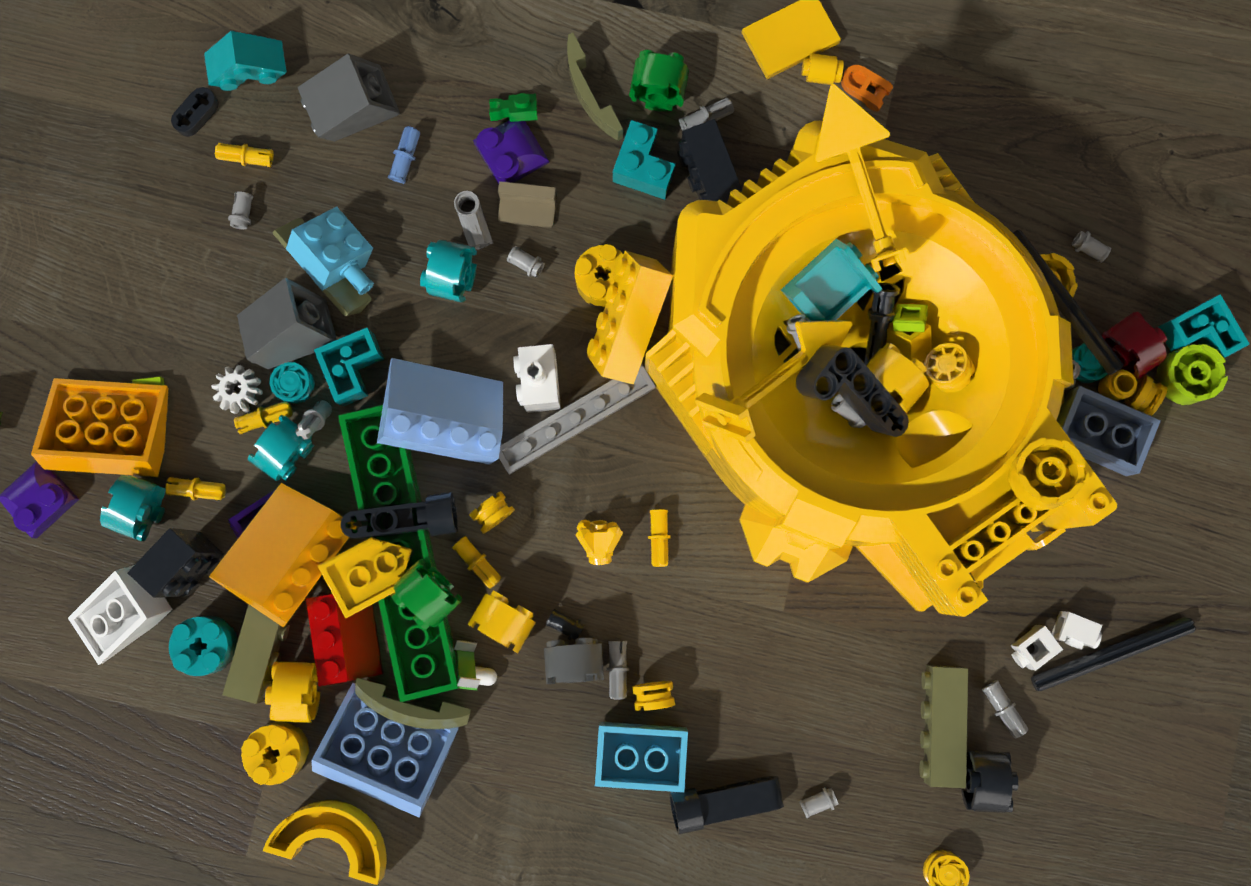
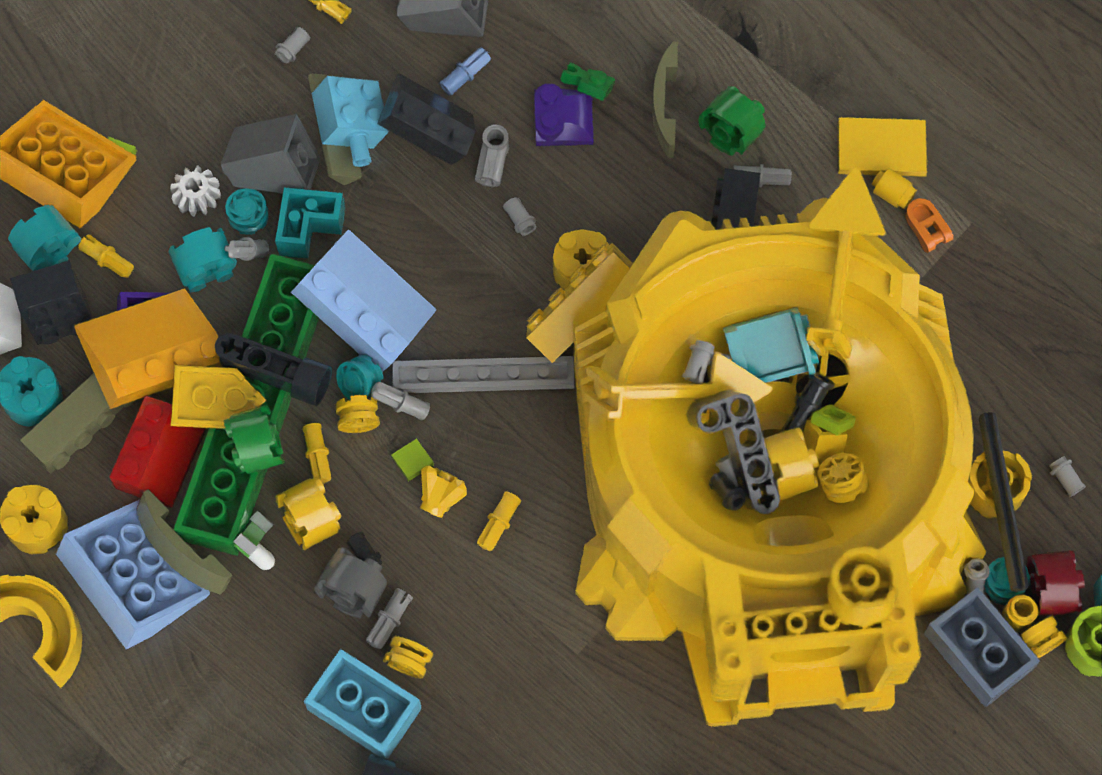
camera: 30 degrees right, 15 degrees down
(262, 417) = (190, 224): yellow axle -> none
(293, 692) = (83, 472): yellow brick -> none
(400, 218) = (427, 120): none -> black slope
(449, 270) = (445, 185): teal brick -> none
(476, 480) = (358, 376): none -> teal wheel
(521, 481) = (400, 400): none -> light grey axle
(526, 204) = (551, 168): dark tan panel -> none
(538, 378) = (469, 318): white brick -> none
(558, 523) = (412, 459): none -> lime tile
(637, 166) = (672, 181): teal brick -> none
(784, 337) = (698, 361): none -> light grey pin
(859, 431) = (732, 496): none -> black pin

